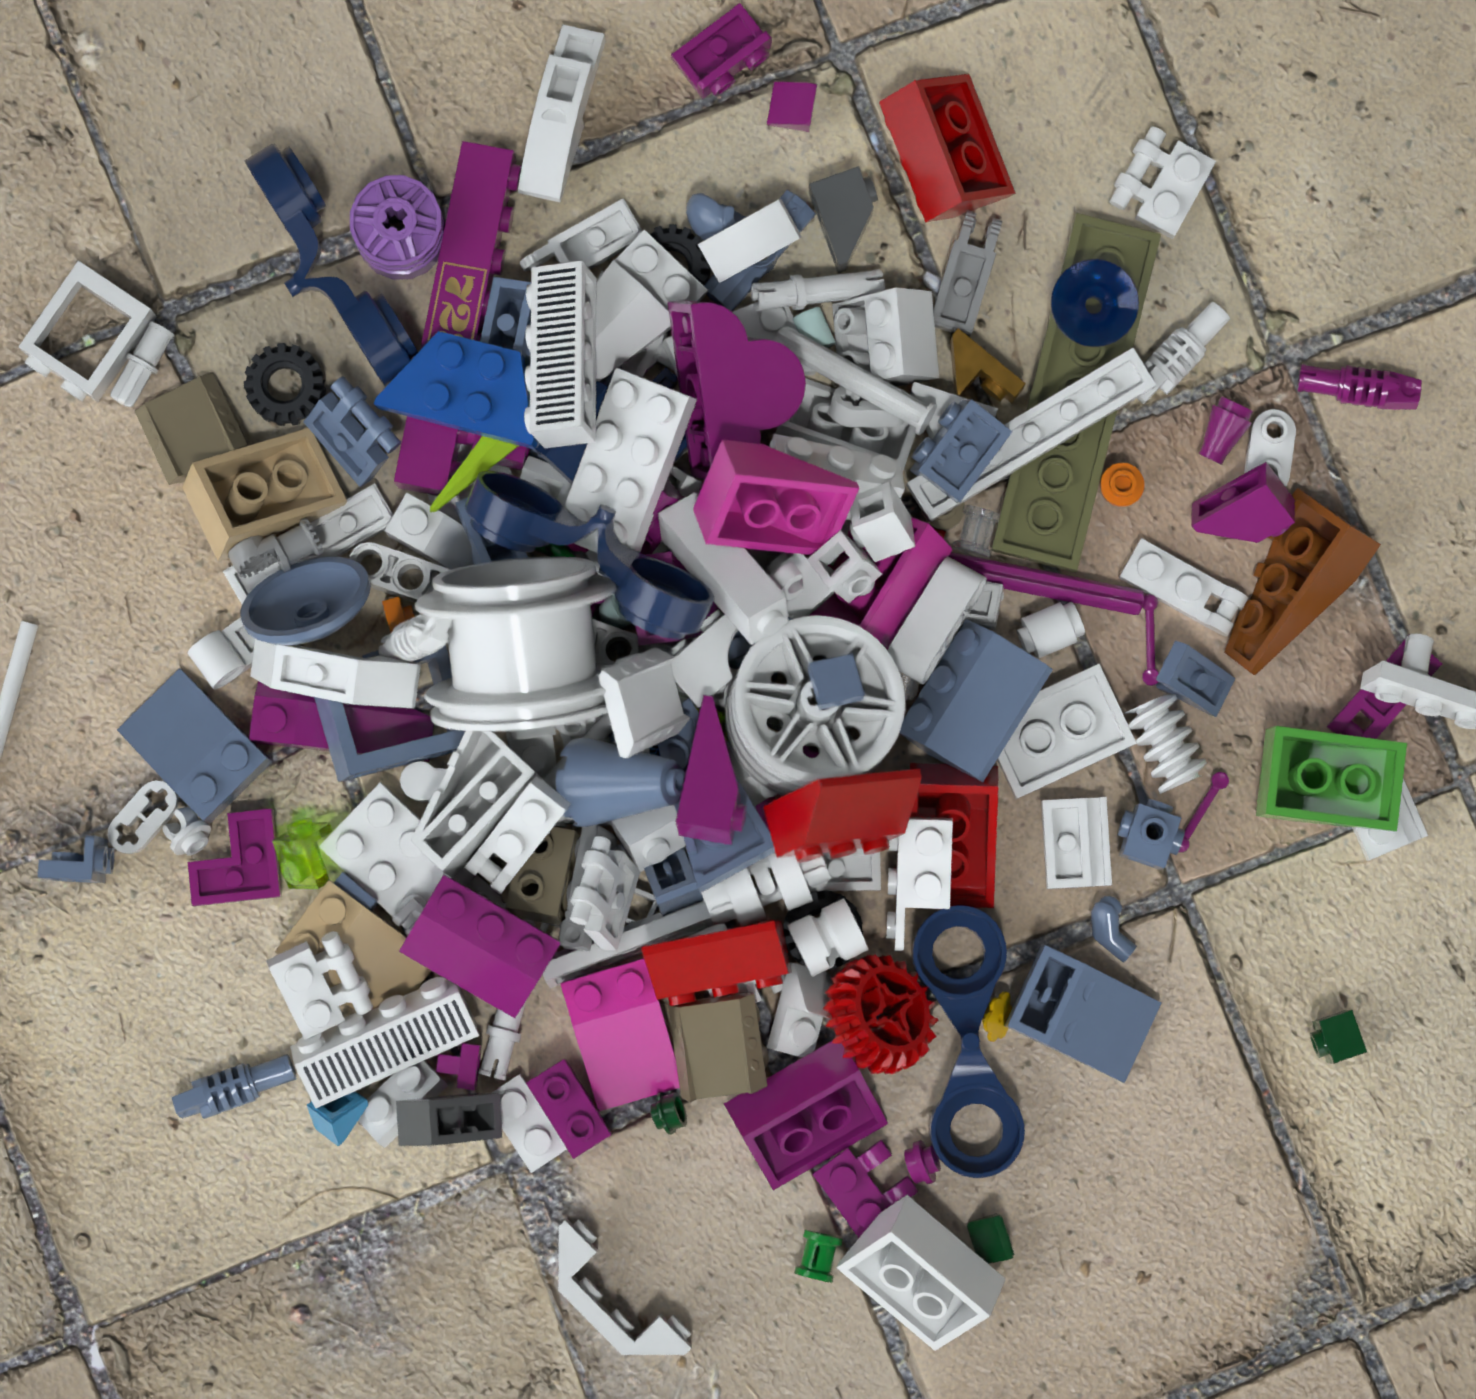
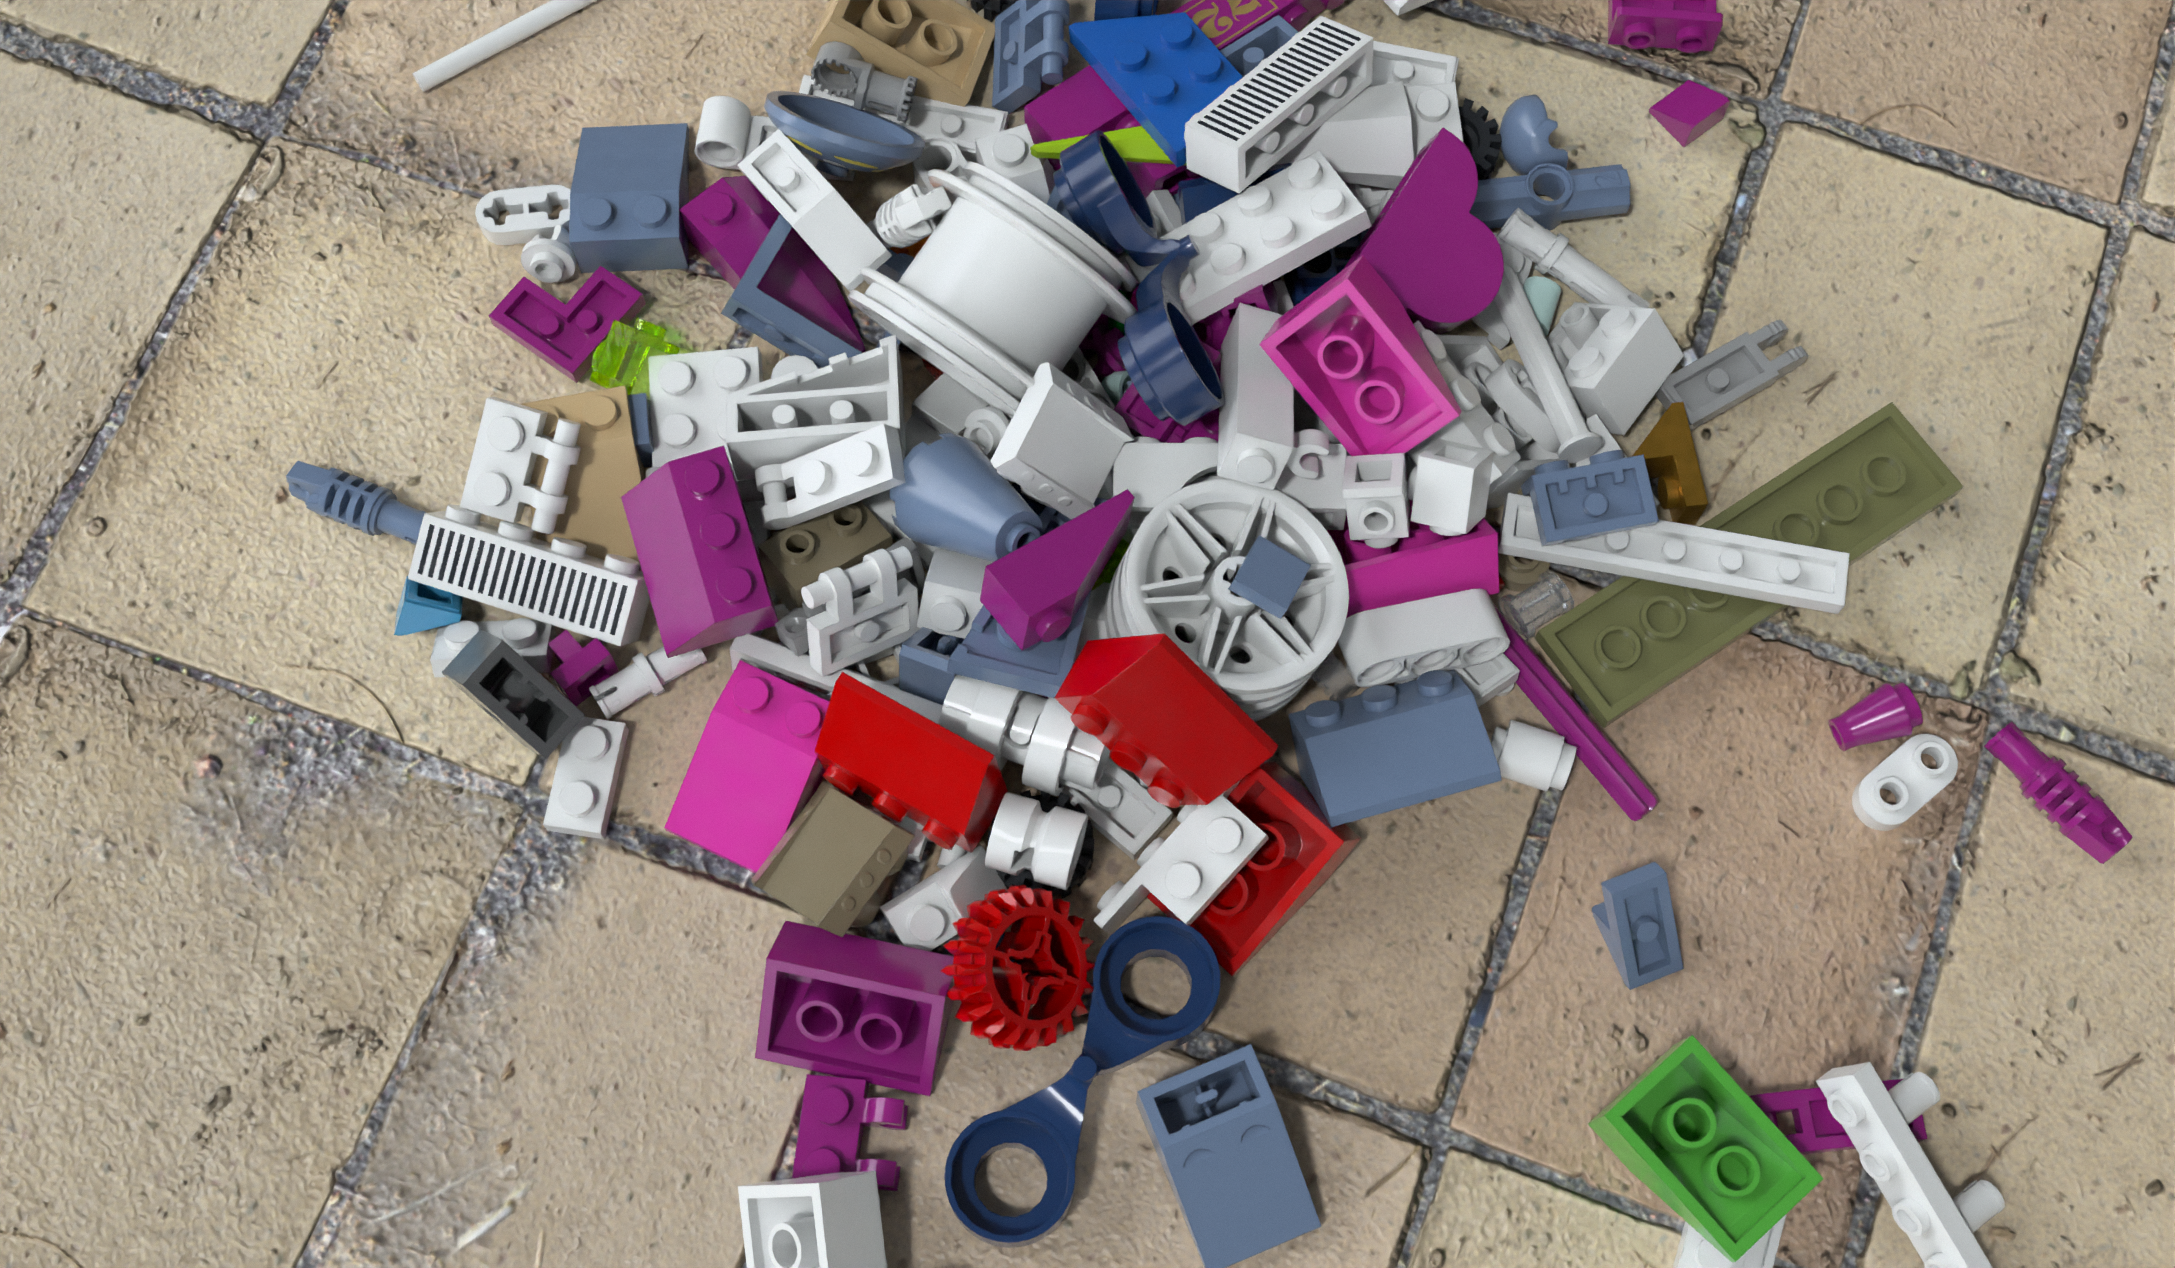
camera: 45 degrees right, 15 degrees down
(87, 868) = (433, 195): sand blue bracket -> none
(569, 1108) = (636, 793): magenta brick -> none
(658, 1338) = (500, 937): white slope -> none
(668, 1112) = (727, 886): dark green plate -> none
(749, 240) = (1548, 159): white slope -> none
(818, 1256) = (733, 1162): green bush -> none
(843, 211) = (1660, 227): dark grey slope -> none
(922, 1162) = (924, 1163): magenta plate -> none
(946, 146) = (1809, 248): red slope -> none
(996, 1016) = (1132, 1079): yellow plant -> none
(1065, 732) = (1455, 864): white plate -> none
(1076, 843) = (1374, 984): white plate -> none
(1097, 281) = (1855, 466): clear blue dish -> none
(1106, 928) = (1329, 1098): sand blue arm -> none
(1122, 484) = (1724, 680): orange plate -> none
(1136, 843) = (1447, 1055): sand blue brick -> none
(1149, 605) = (1654, 821): magenta hinge -> none
(1166, 742) = (1554, 963): white piece -> none
(1174, 189) = (2007, 465): white plate -> none
(1182, 586) = (1703, 833): white plate -> none
(1183, 350) = (1892, 612): white hinge -> none
(1218, 782) = (1576, 1057): magenta hinge -> none
(1246, 507) = (1841, 806): magenta slope -> none
(1298, 581) = (1863, 918): dark orange wedge -> none

